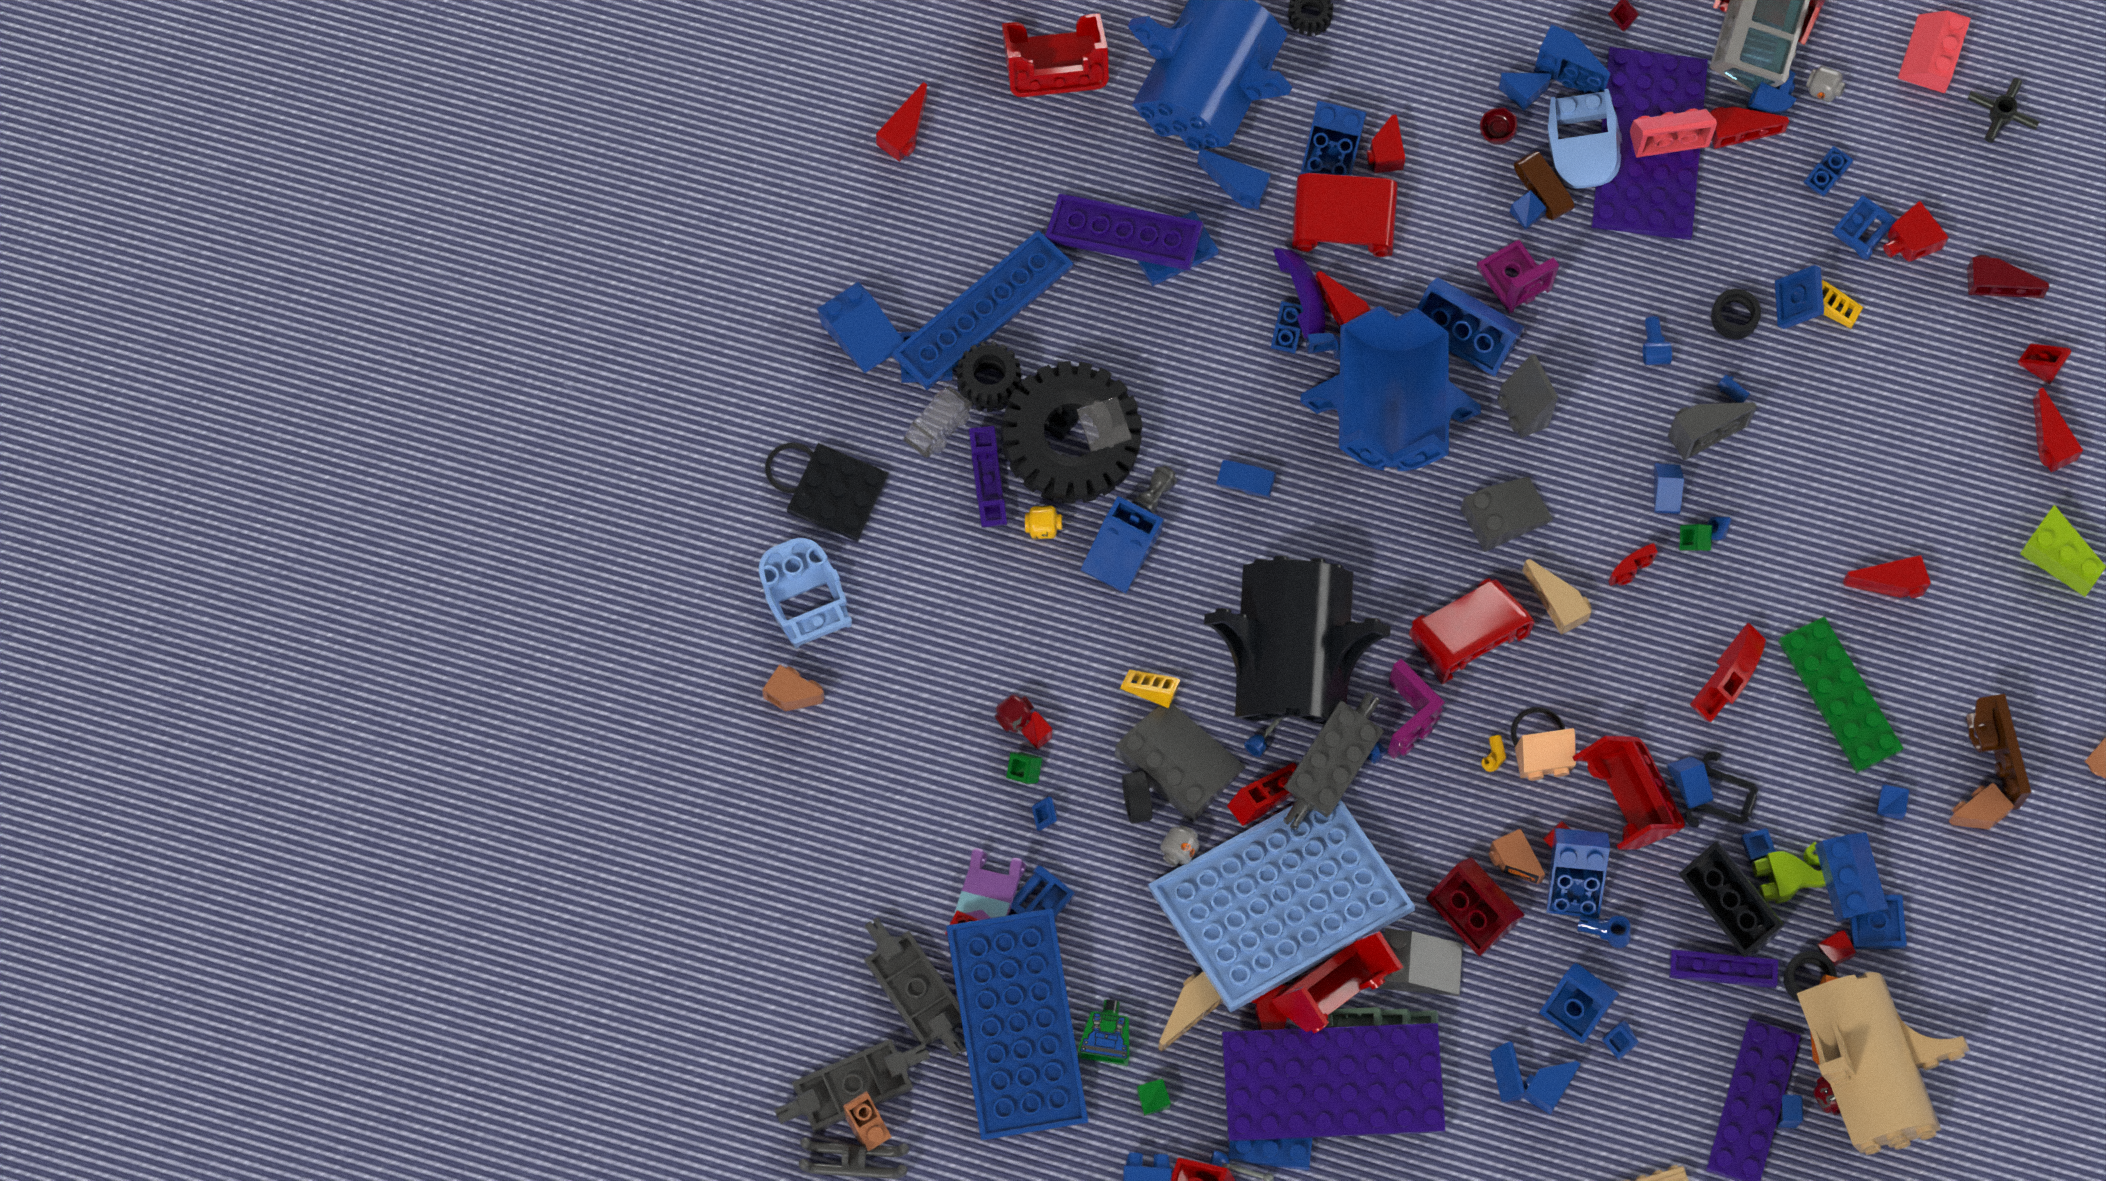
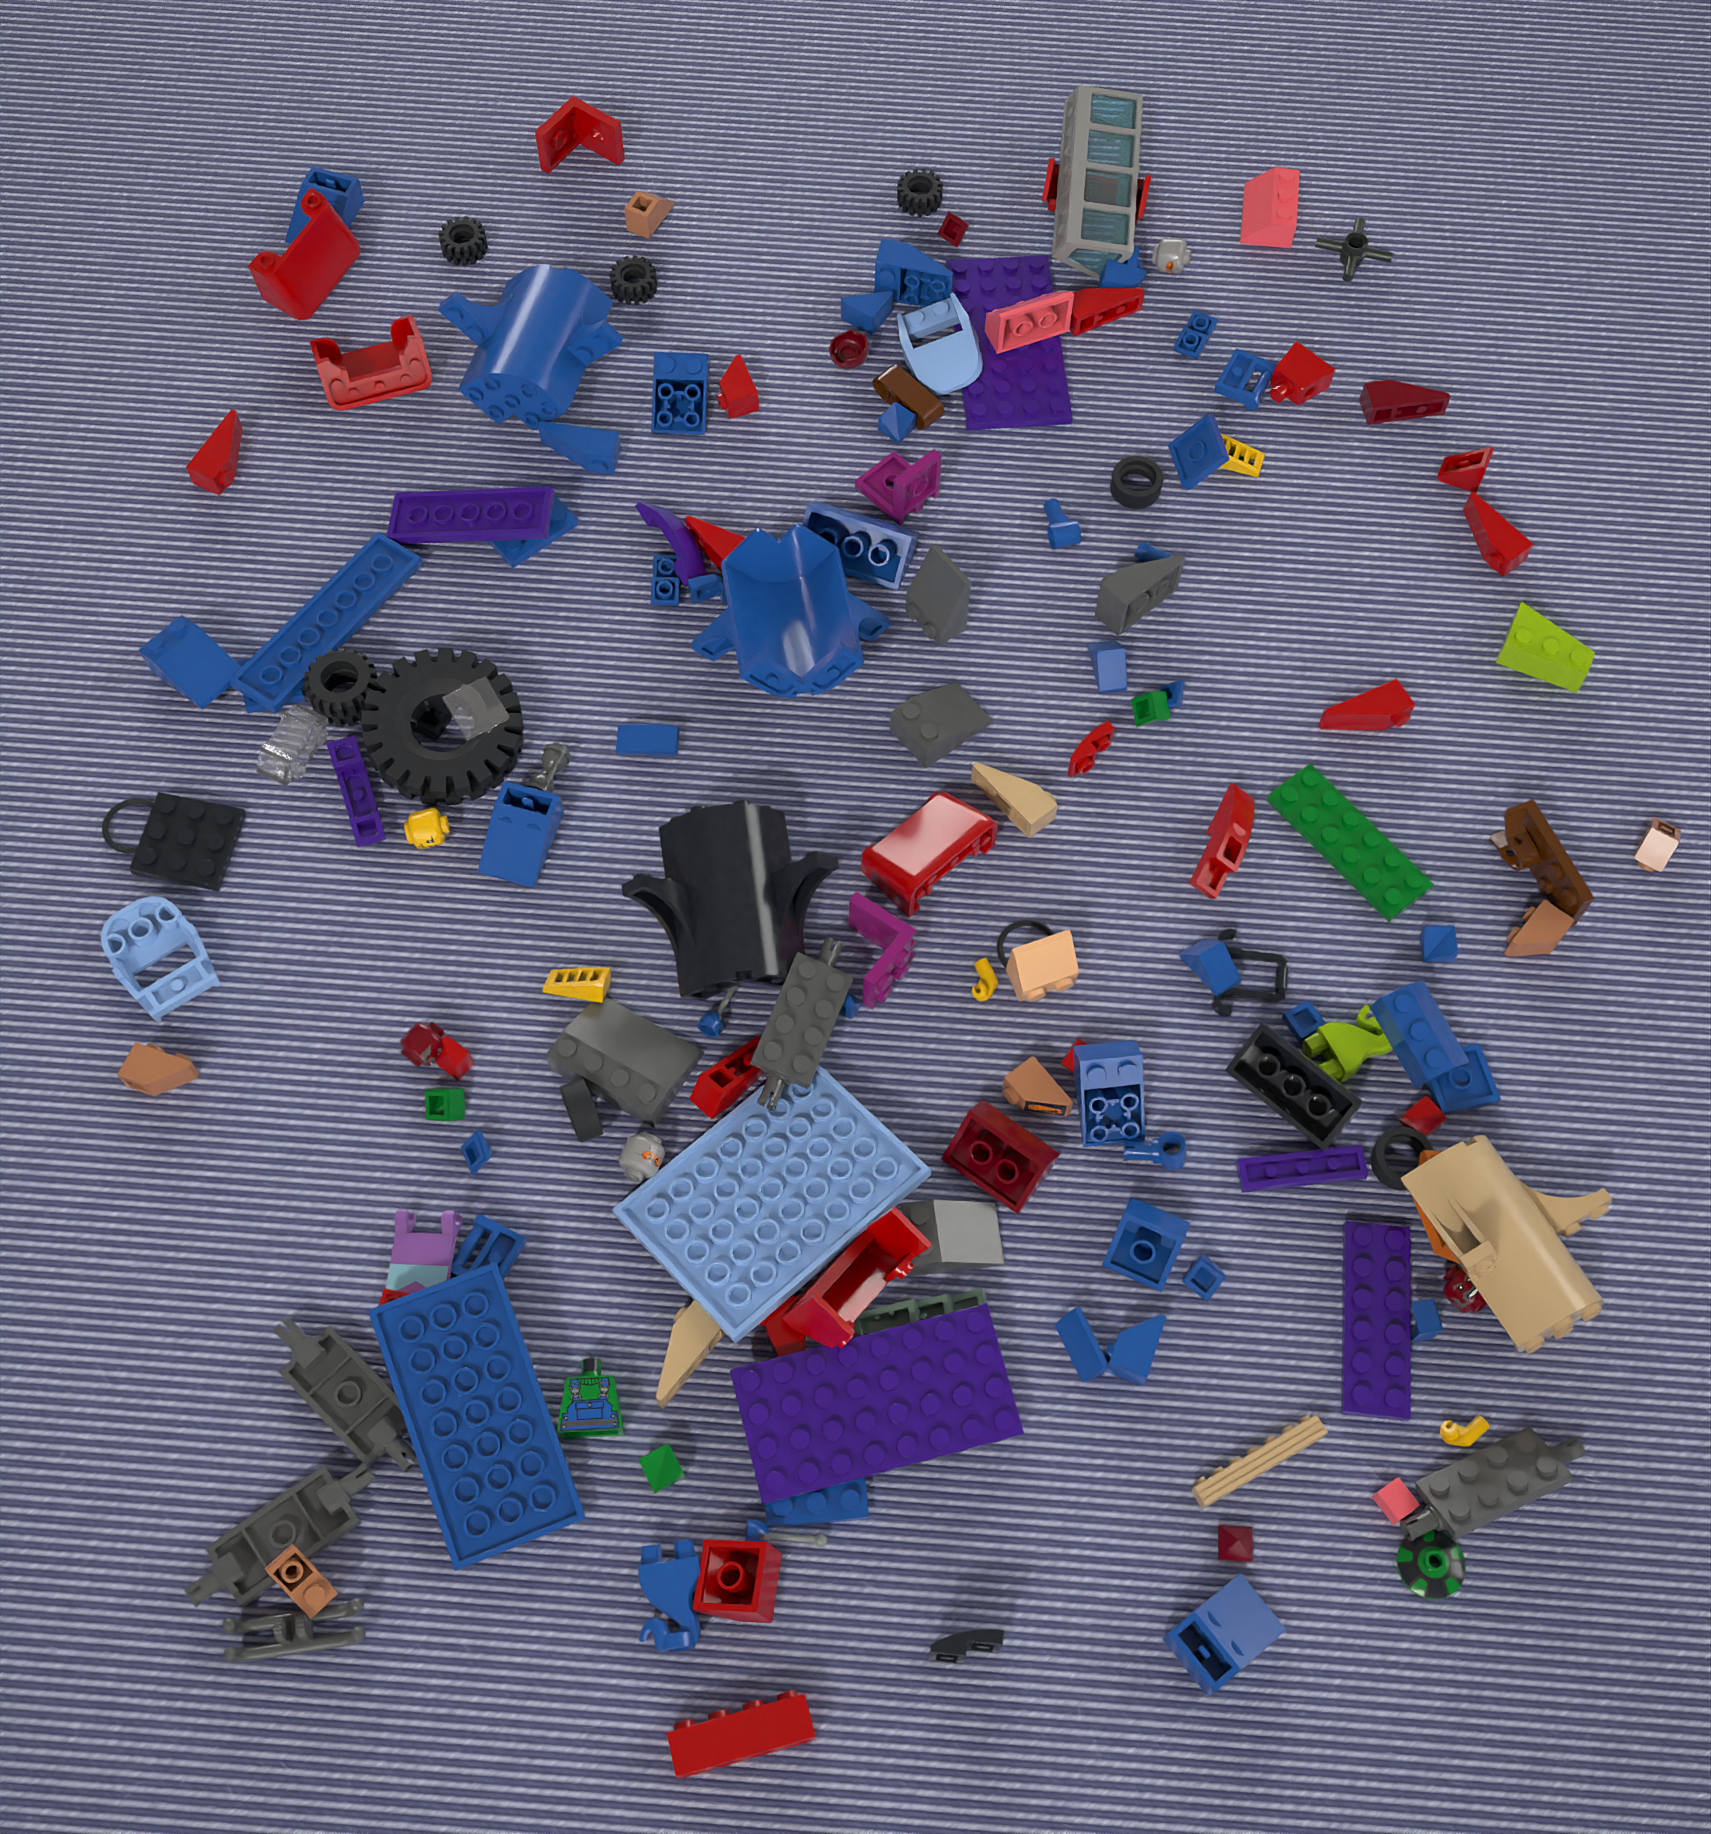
camera: 10 degrees left, 5 degrees down
(1344, 212) = (704, 452): red windscreen -> none
(1636, 787) = (1151, 985): red windscreen -> none

